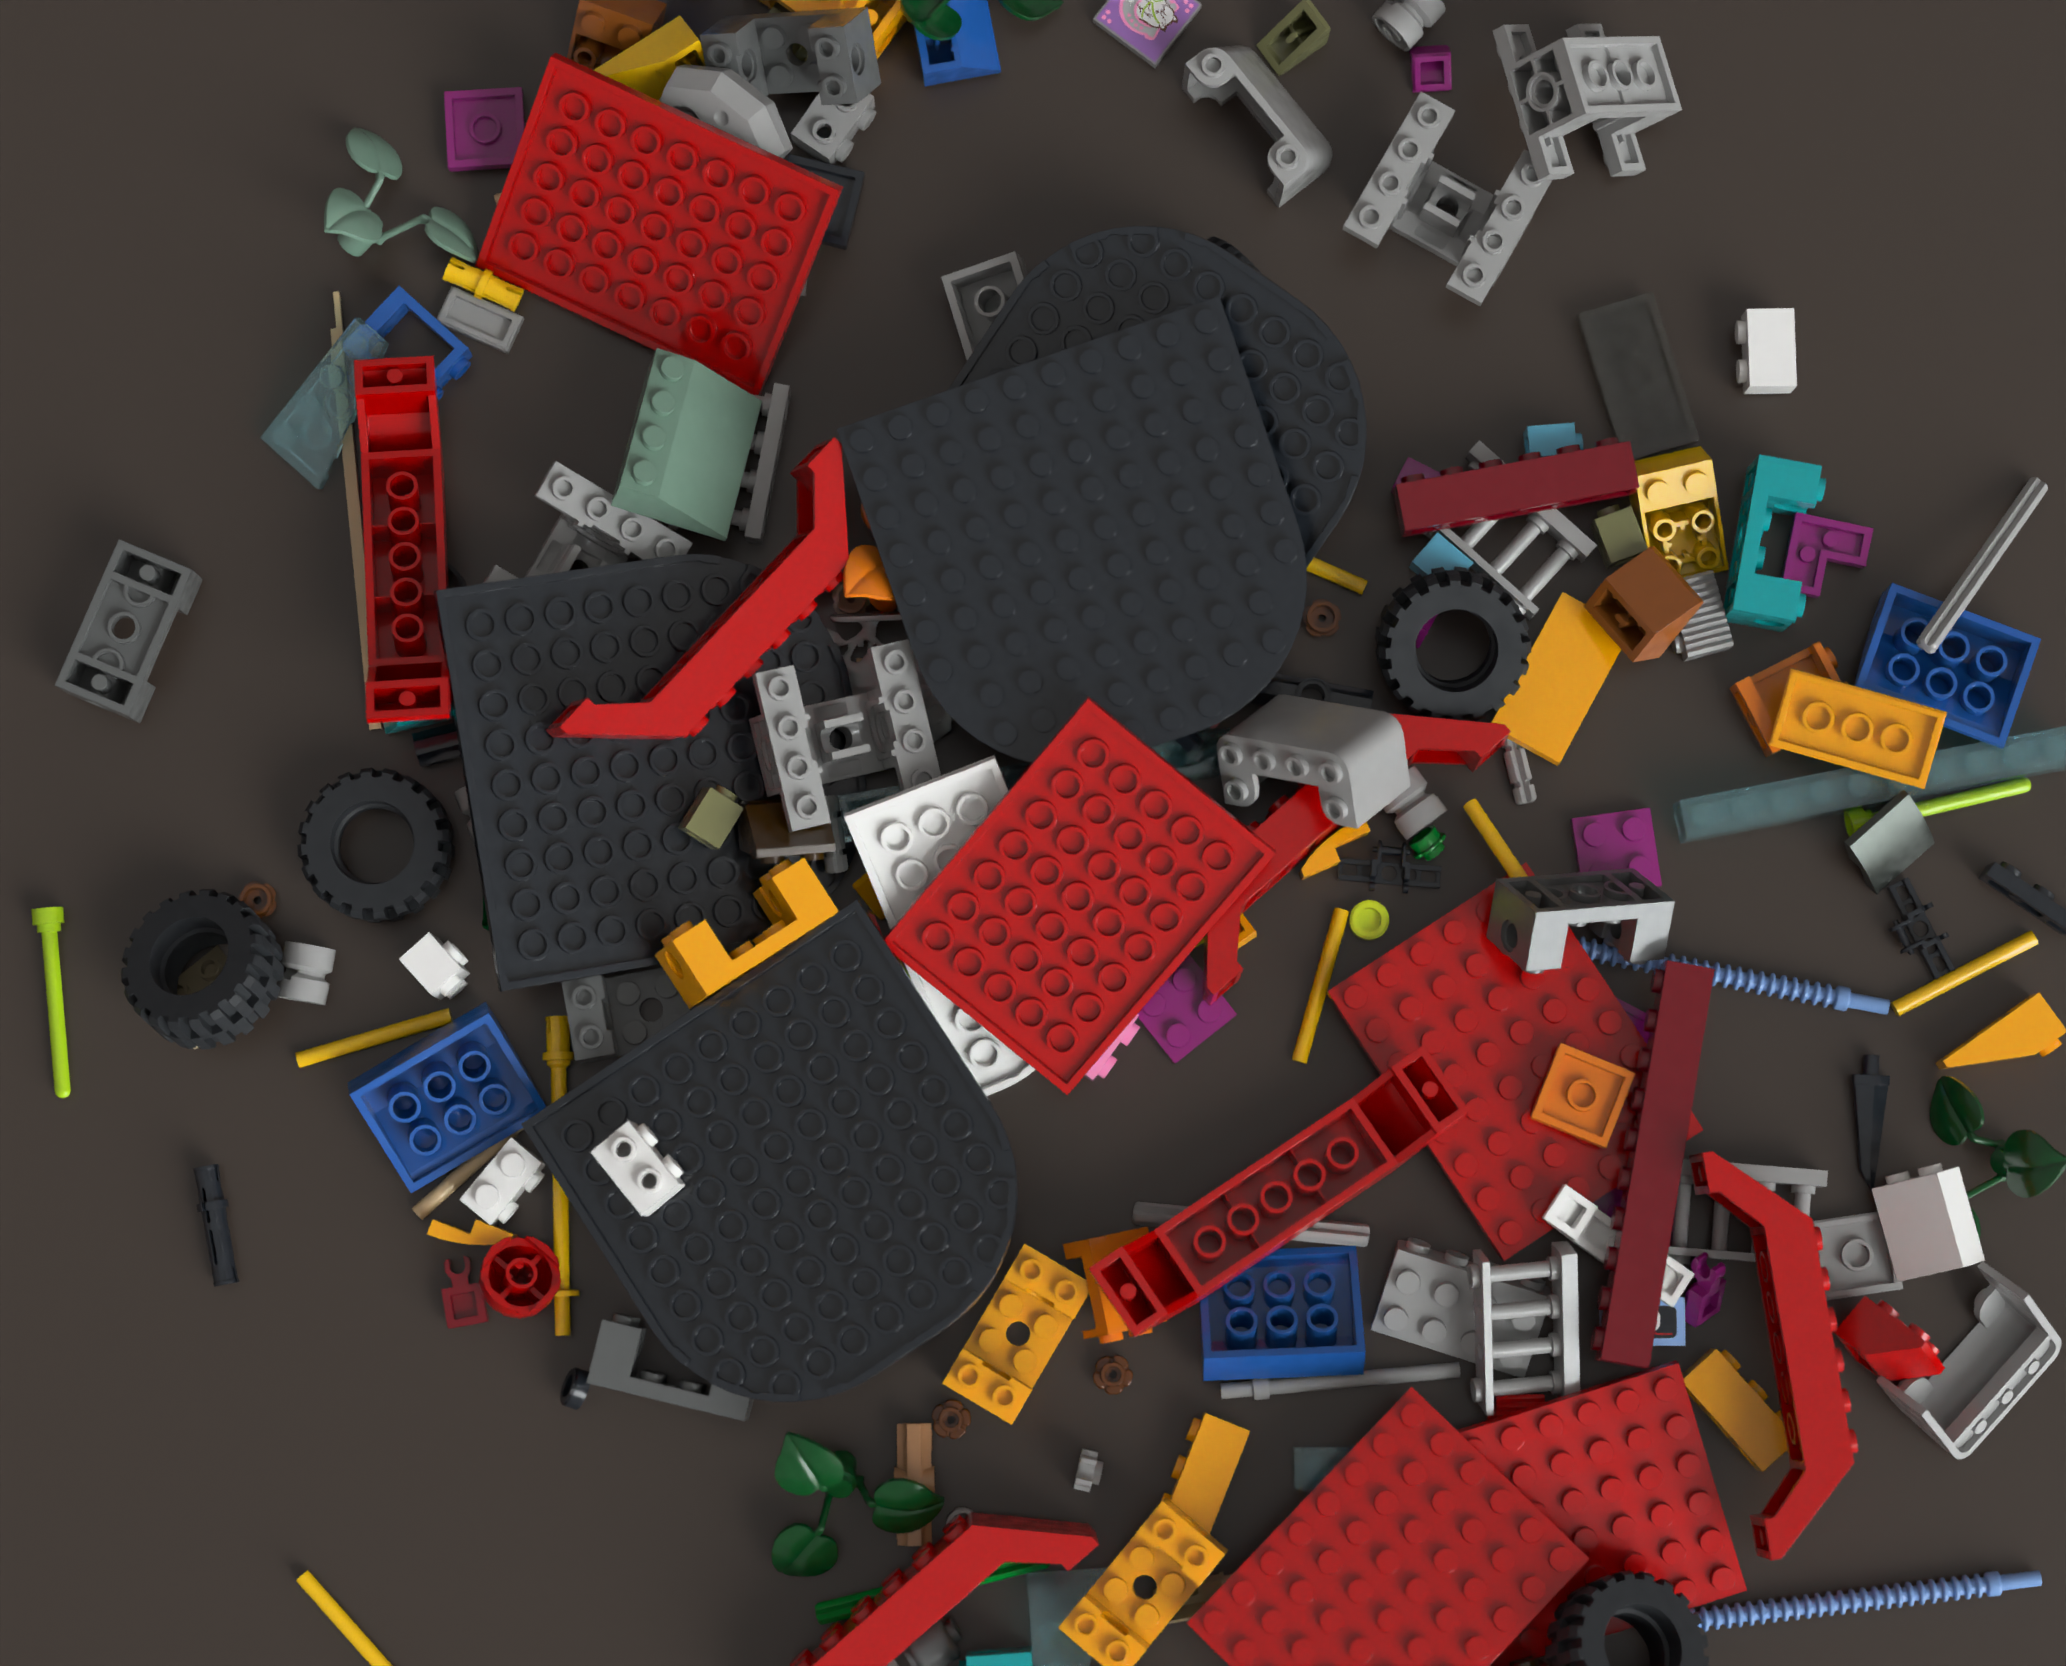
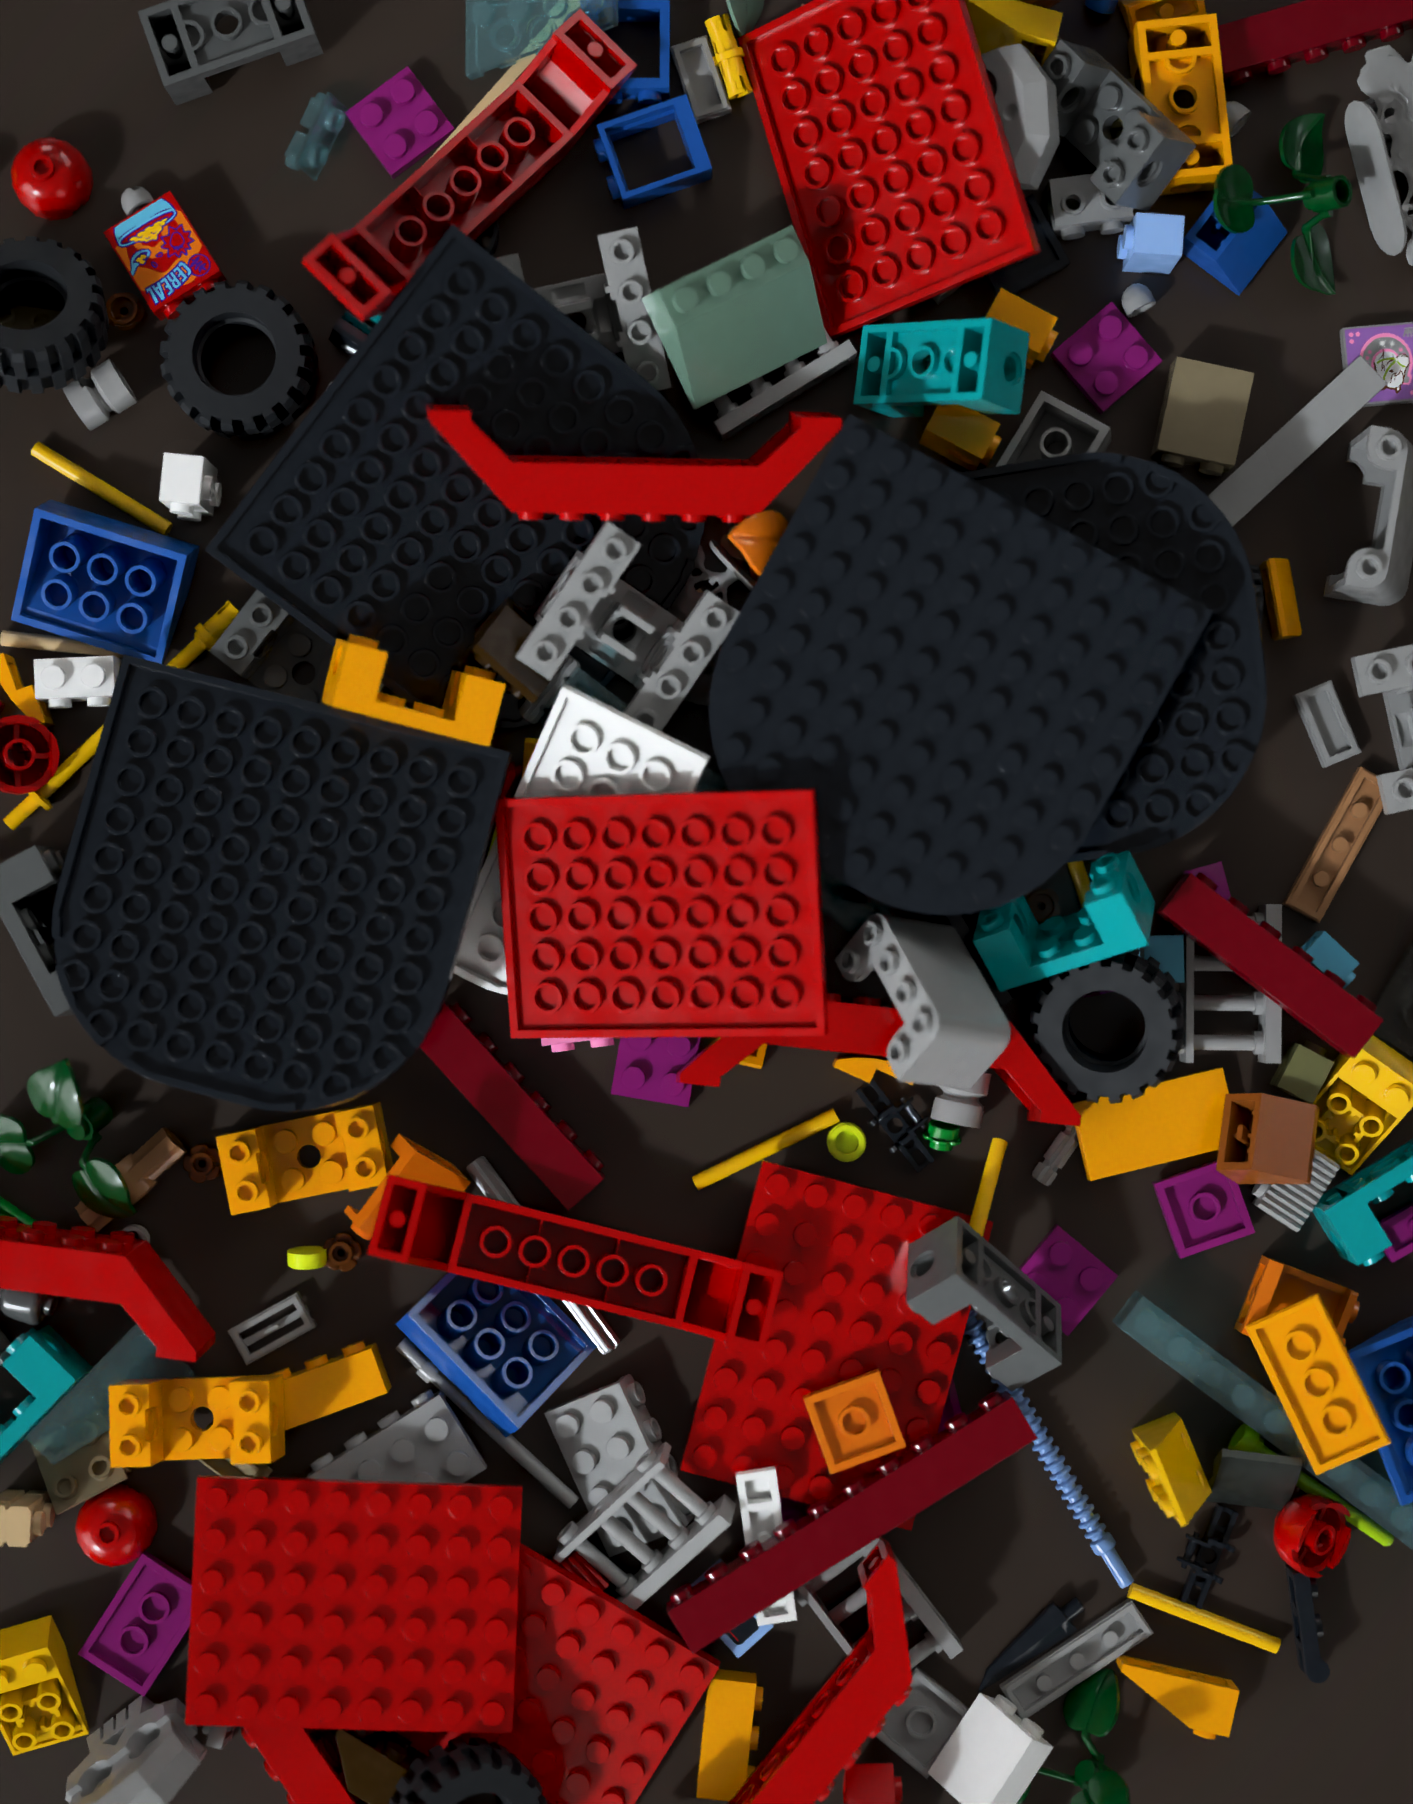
camera: 55 degrees right, 5 degrees up
(109, 865) = (51, 178): none -> red cylinder
(186, 817) = (135, 199): none -> light grey hinge
(247, 832) = (164, 255): none -> brick
(253, 622) = (310, 151): none -> clear light blue hinge
(306, 568) = (400, 122): none -> magenta plate
(517, 365) = (649, 117): none -> blue window
(639, 1167) = (164, 771): white brick -> none
(711, 816) = (478, 587): olive brick -> none
(879, 257) = (965, 433): none -> light orange plate
(879, 311) = (971, 365): none -> teal plate
(906, 101) = (1151, 243): none -> light blue brick
(936, 148) = (1137, 299): none -> light grey hinge
(958, 208) = (1106, 357): none -> magenta plate
(1065, 177) = (1202, 416): none -> dark tan brick
(1088, 1470) = (254, 1298): light grey plate -> none
(1093, 1403) = (306, 1257): none -> neon yellow tile
(1115, 1512) = (242, 1344): none -> light grey tile
(1122, 1146) = (510, 1108): none -> dark red brick
(1146, 125) = (1297, 440): none -> light grey tile
(1252, 240) = (1280, 598): none -> light orange slope
(1308, 1445) = (408, 1447): none -> light grey bracket
(1375, 289) = (1326, 724): none -> light grey tile
(1380, 575) = (1112, 922): none -> teal plate
(1473, 363) = (1336, 847): none -> medium nougat tile
(1655, 700) = (1202, 1209): none -> magenta plate
(1706, 1294) = (790, 1637): magenta plate -> none
(1825, 892) = (1172, 1465): none -> yellow slope
(1911, 1095) = (1076, 1658): none -> light grey tile
(1969, 834) = (1311, 1533): none -> red cylinder

